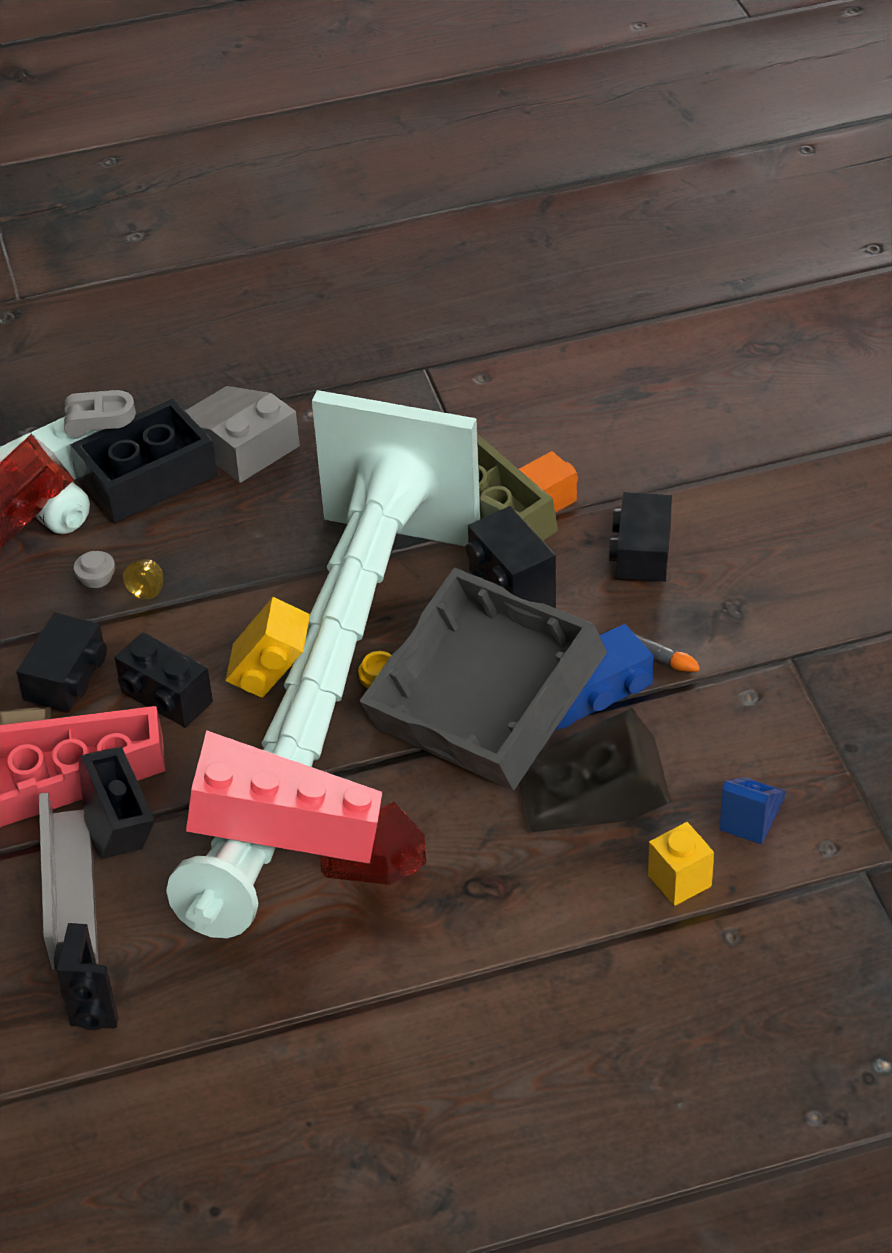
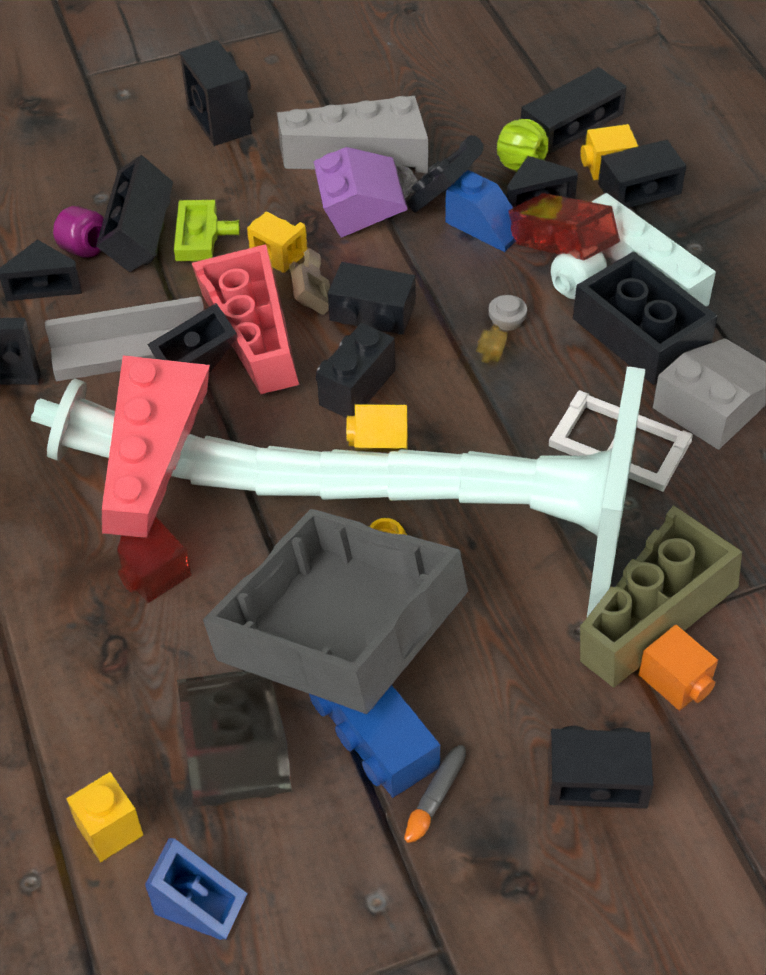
camera: 85 degrees right, 5 degrees up
(97, 411) = (671, 257): light grey plate -> none
(301, 515) = (582, 400): none -> white window
(512, 556) = (515, 629): black brick -> none

